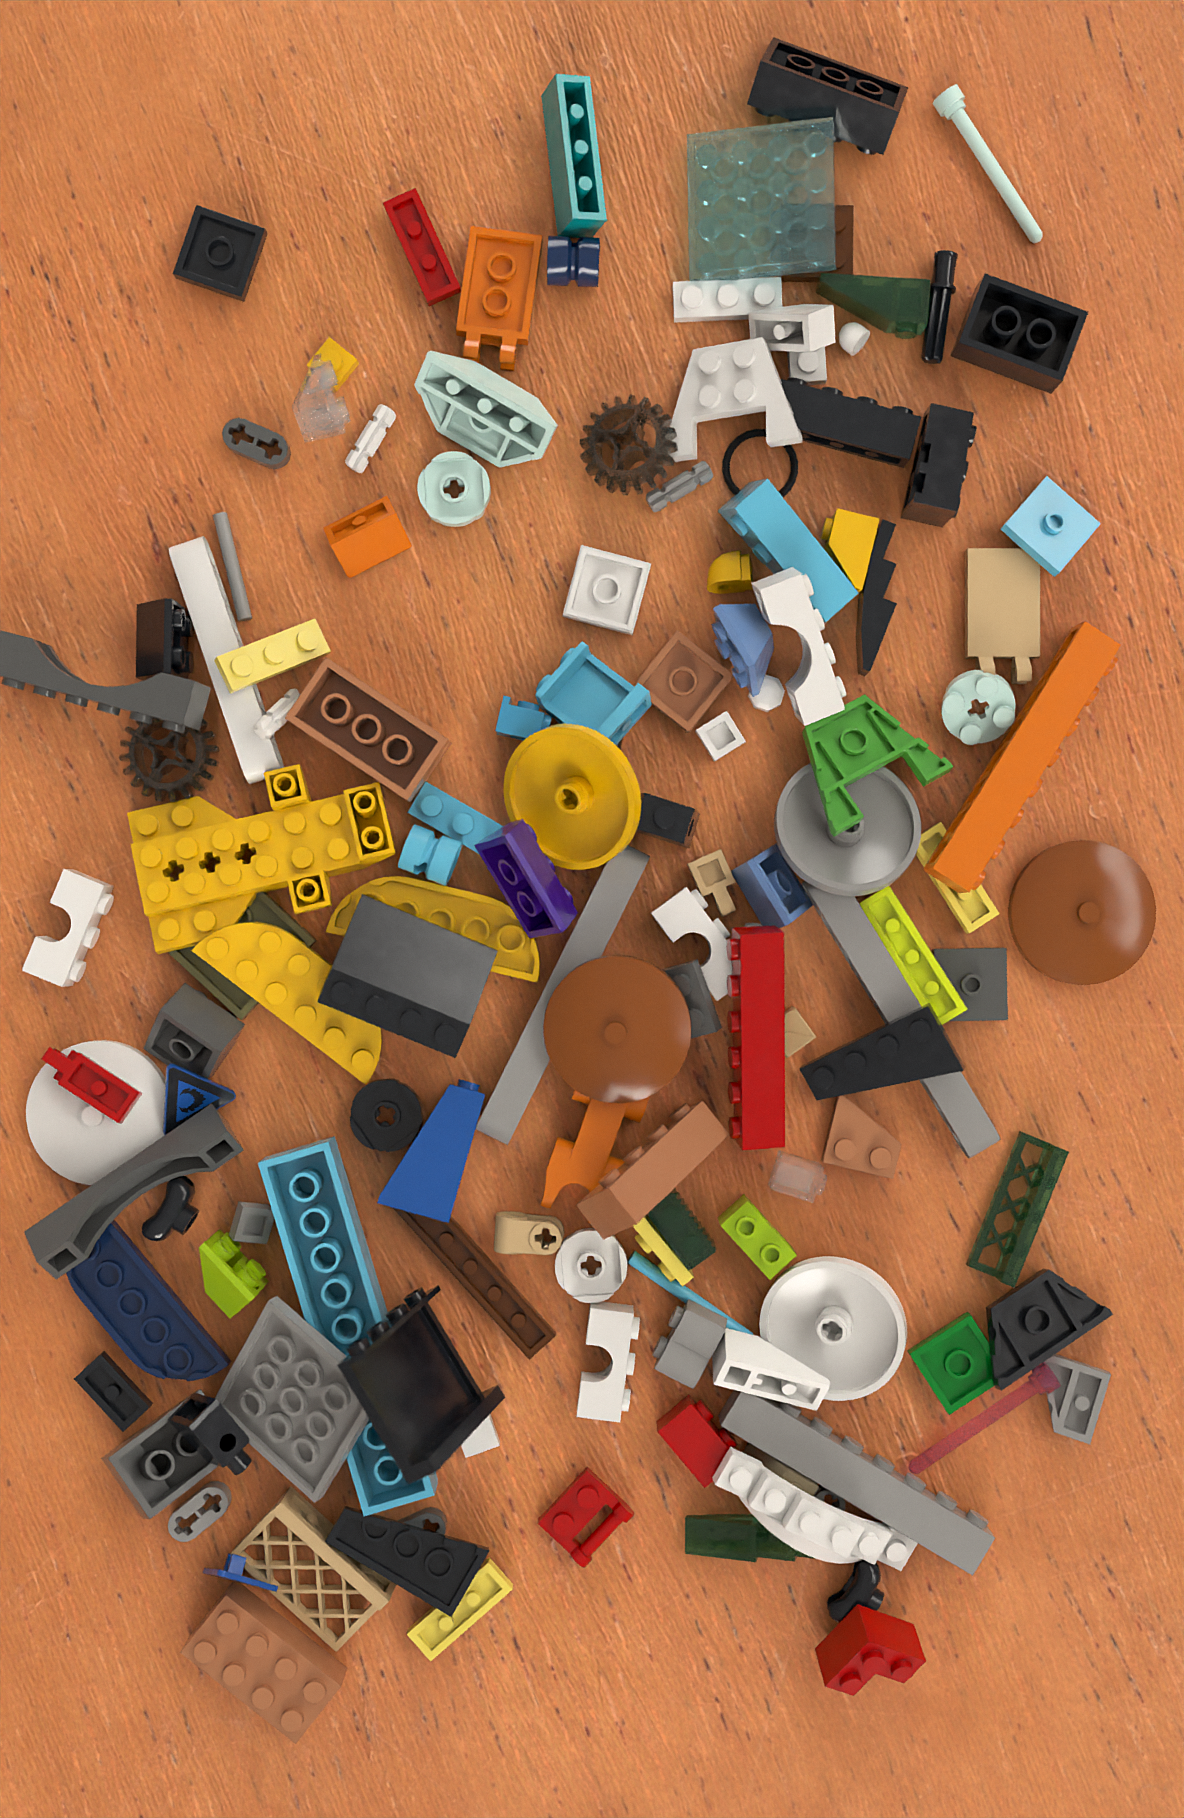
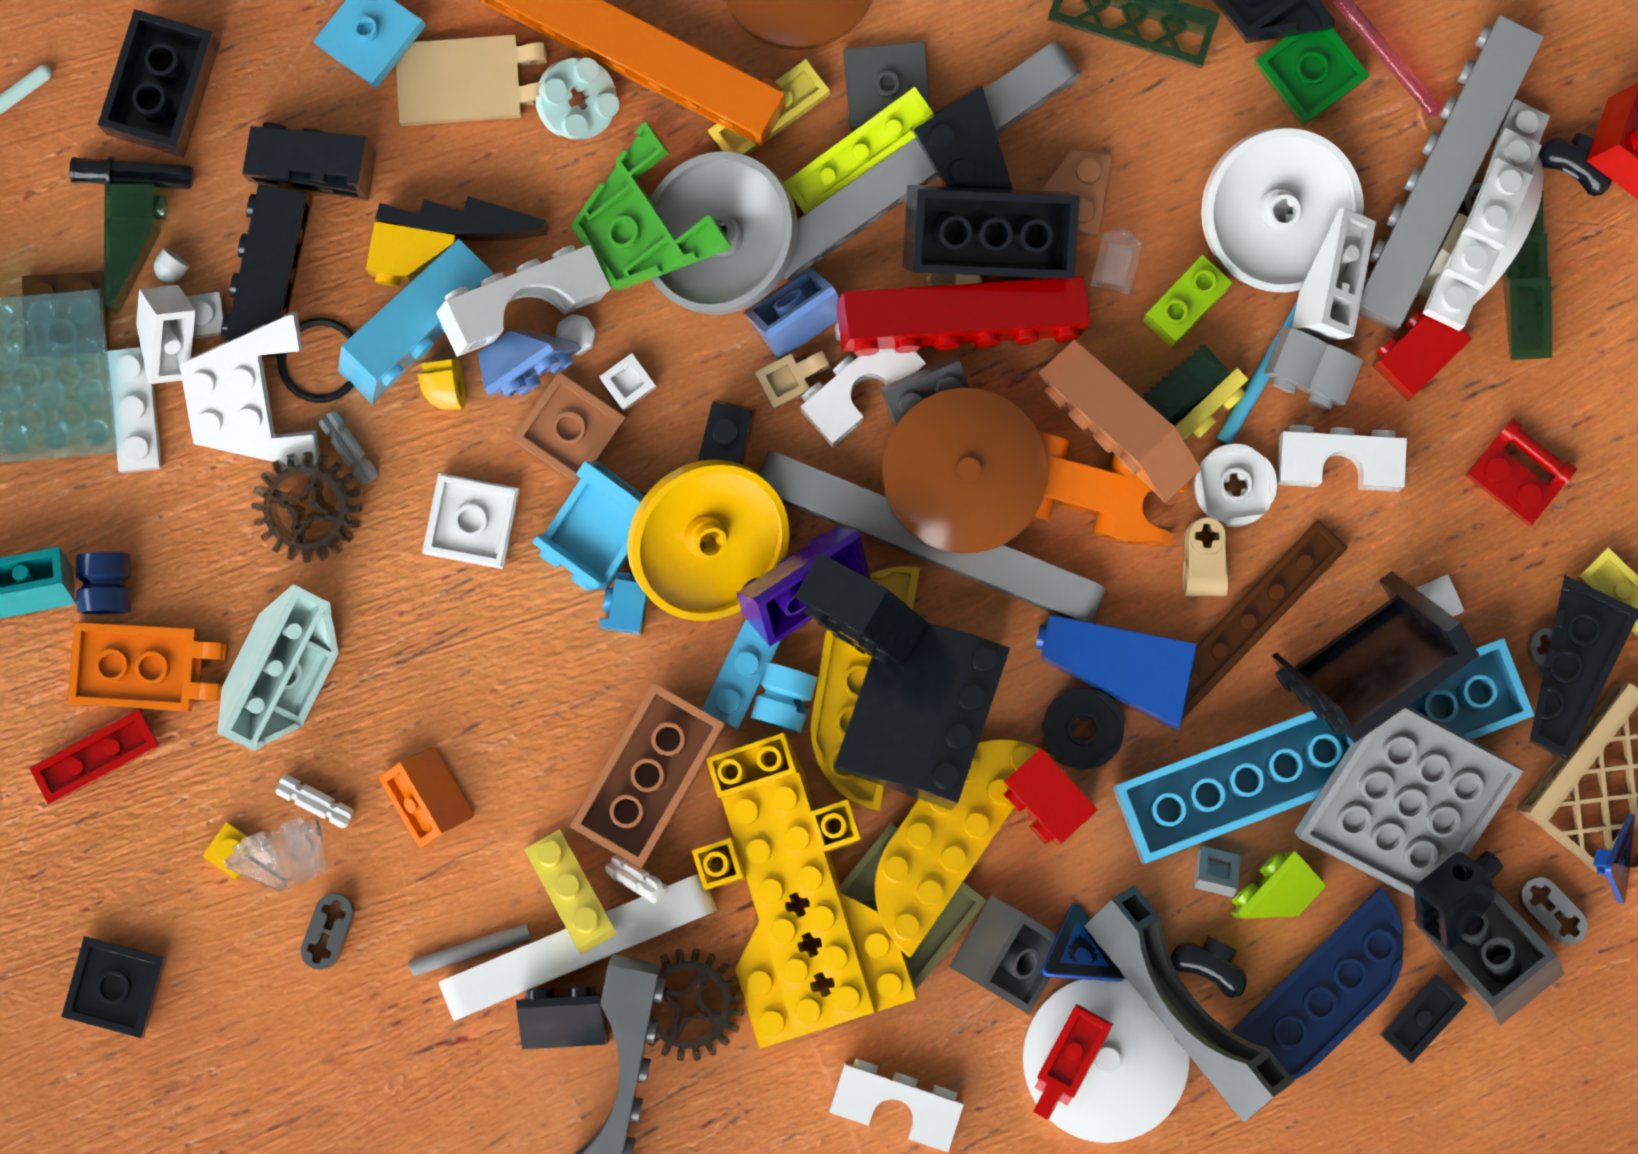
camera: 90 degrees left, 5 degrees down
(317, 1086) = (1049, 797): none -> red brick
(439, 474) = (352, 720): light aqua plate -> none
(492, 925) = (860, 611): none -> black brick
(829, 1068) = (990, 232): none -> black brick

